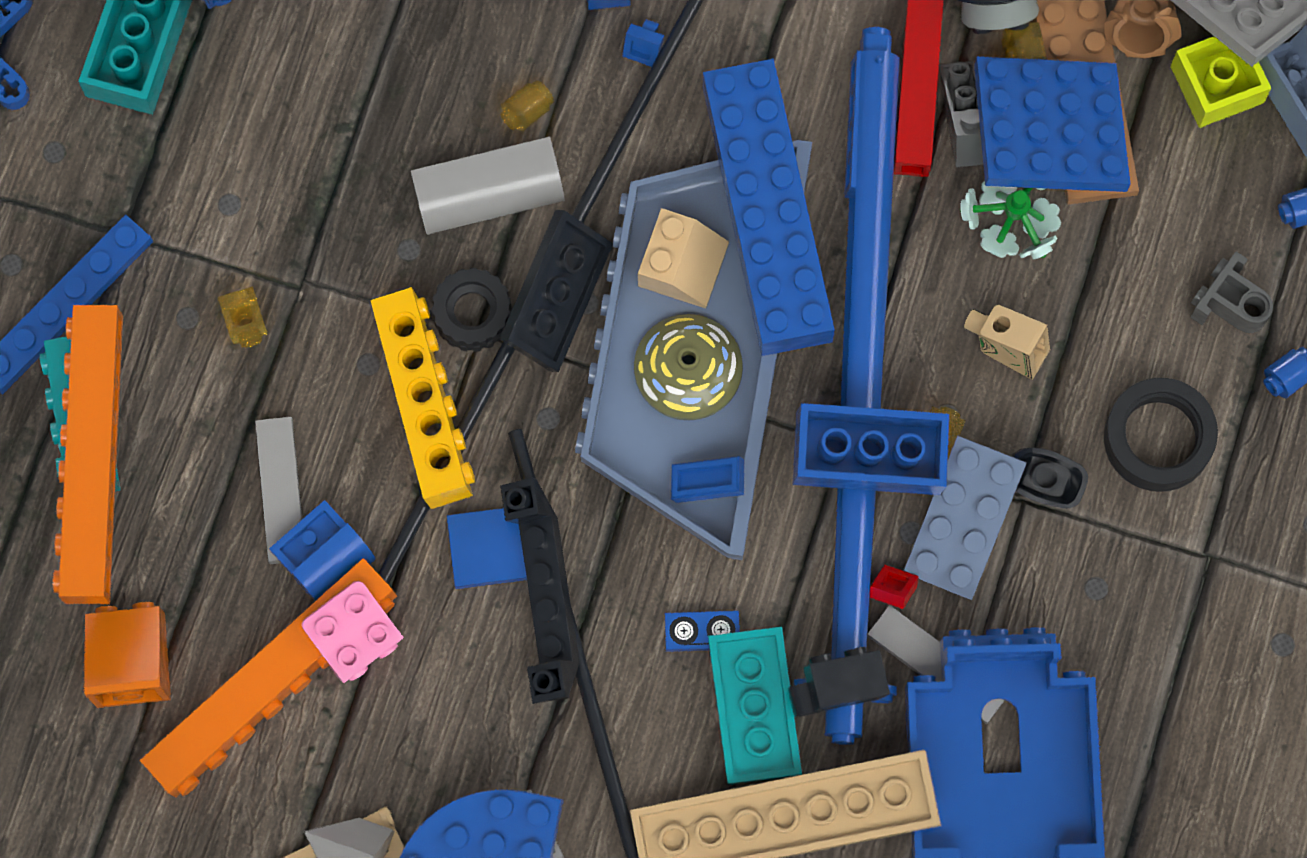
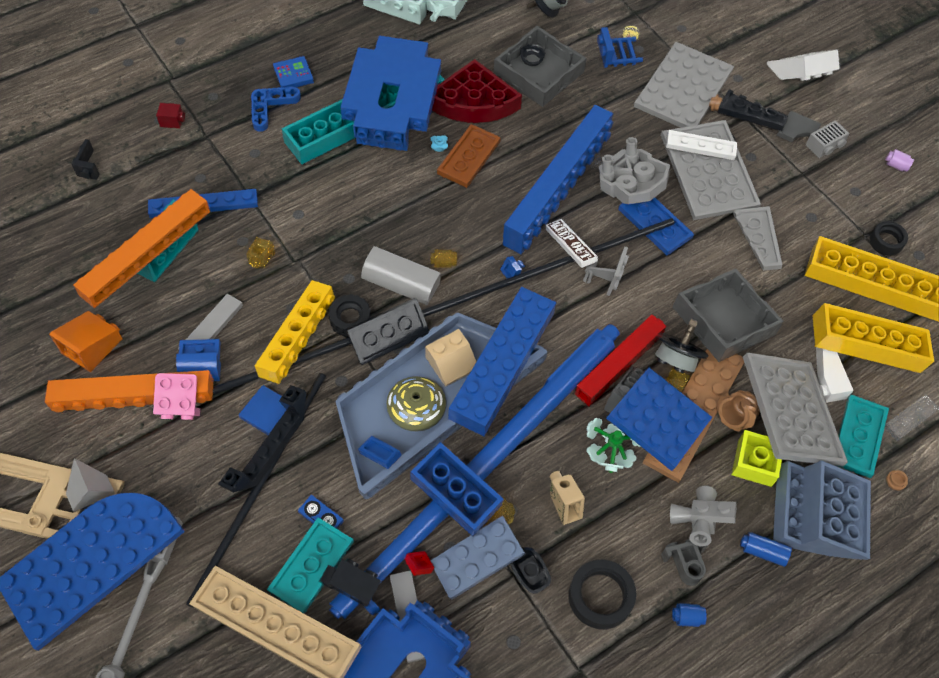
camera: 35 degrees right, 15 degrees down
(1212, 219) = (704, 515): none -> light grey brick

